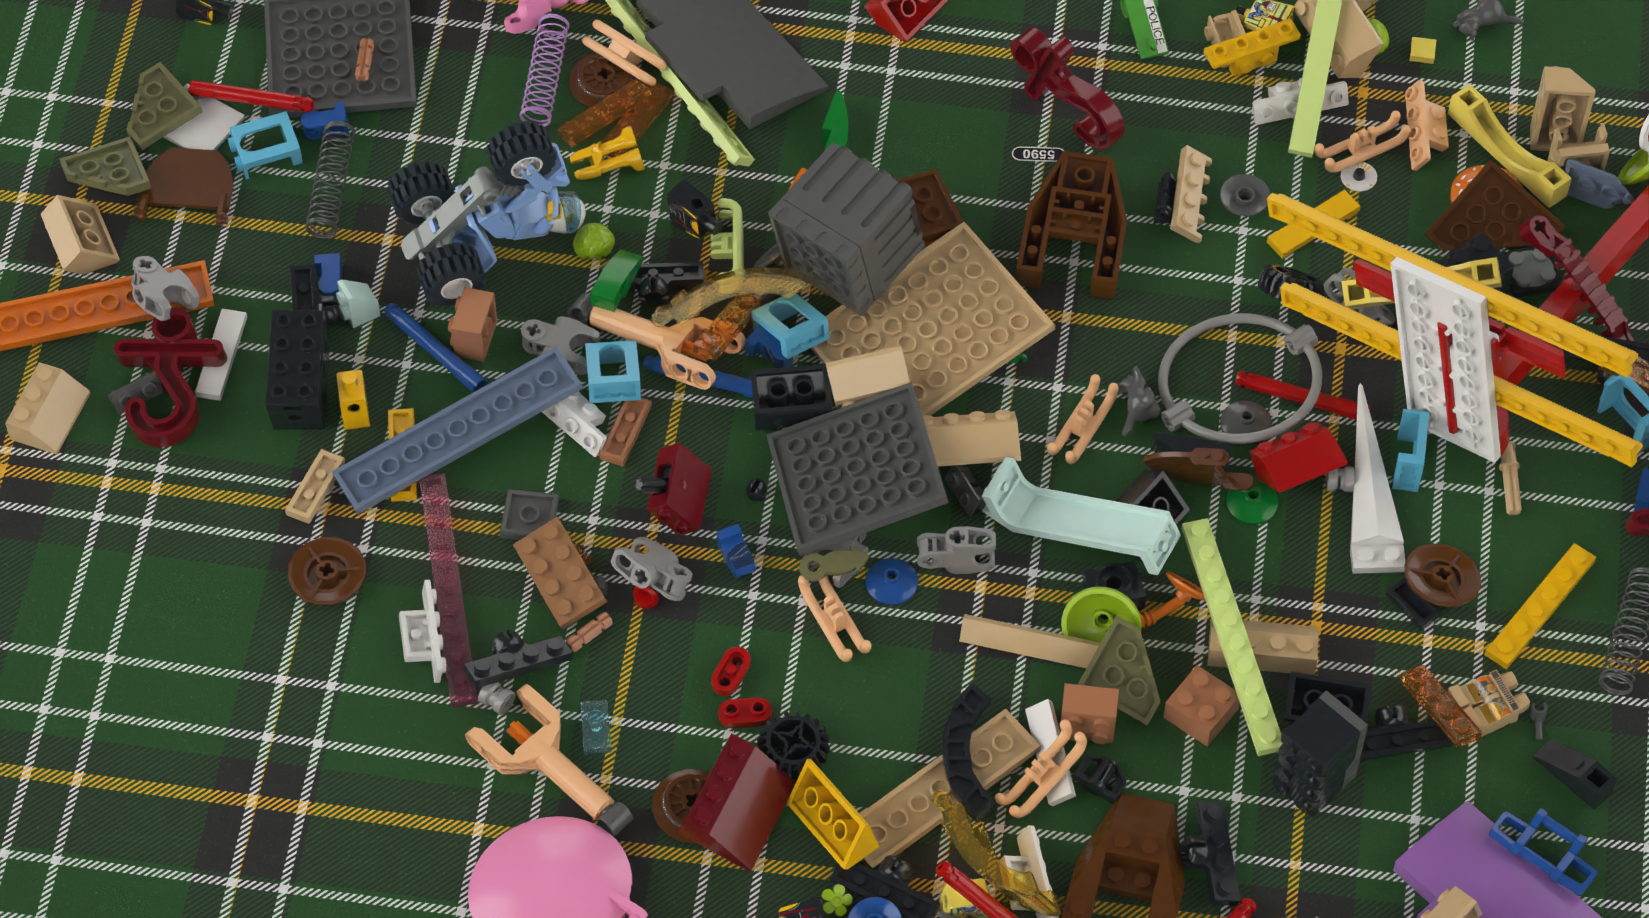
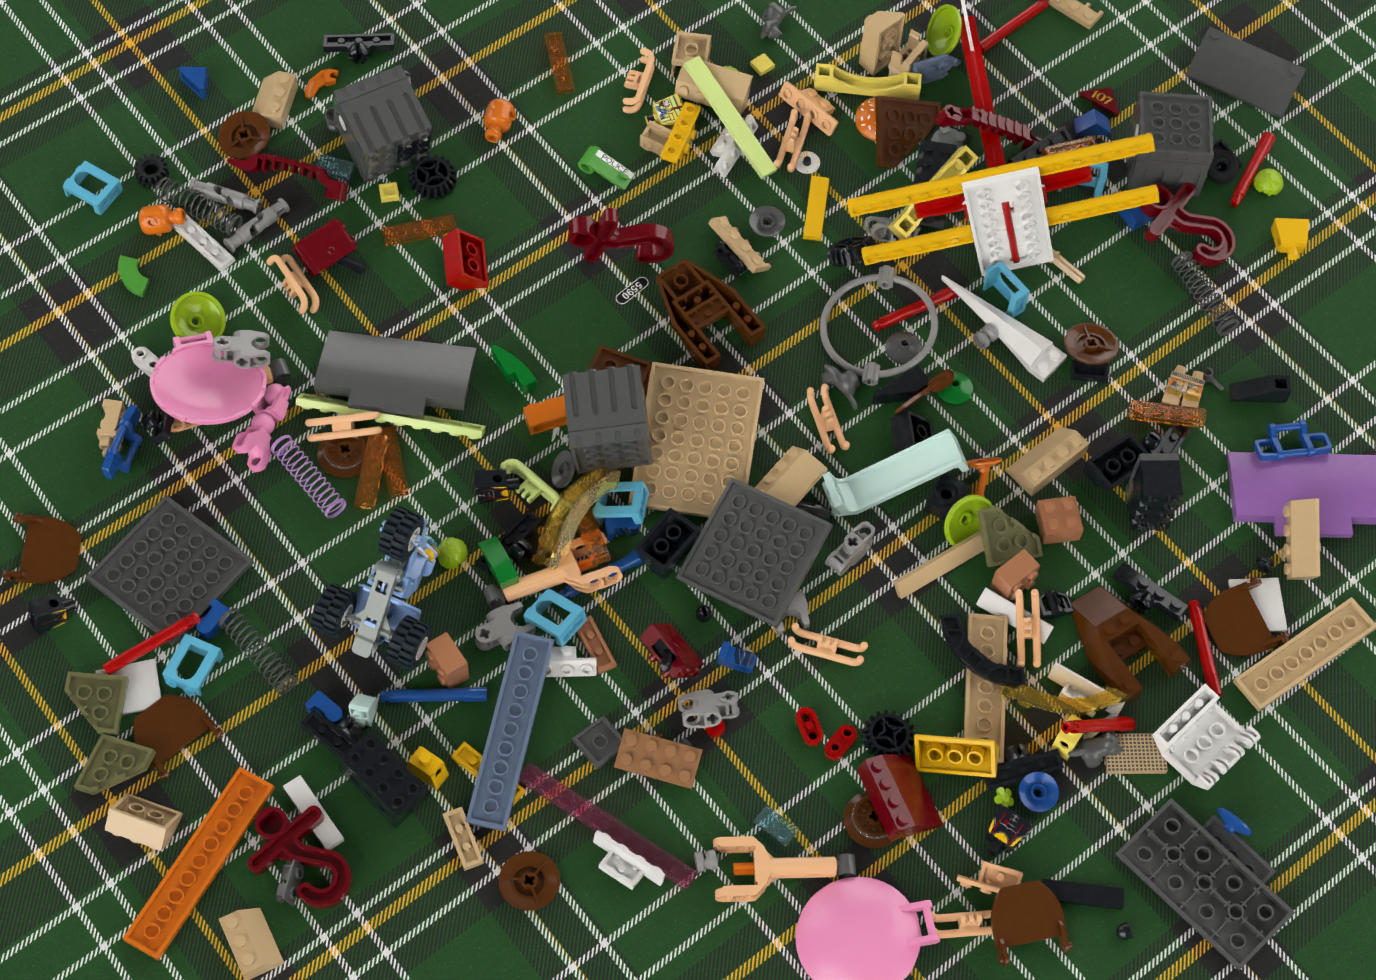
camera: 50 degrees left, 5 degrees up
(157, 288) = (239, 806): light grey piece -> none
(364, 59) = (195, 561): nougat axle -> none
(516, 658) = (693, 829): black plate -> none
(589, 631) = (709, 776): nougat axle -> none
(597, 151) = (397, 497): yellow piece -> none
(834, 563) = (799, 615): olive brick -> none
(867, 375) = (704, 495): tan slope -> none
(889, 590) = (829, 606): blue dish -> none
(1232, 636) = (1041, 468): yellowish green plate -> none
(1297, 457) = (958, 343): red slope -> none
(1540, 606) = (1147, 318): yellow plate -> none

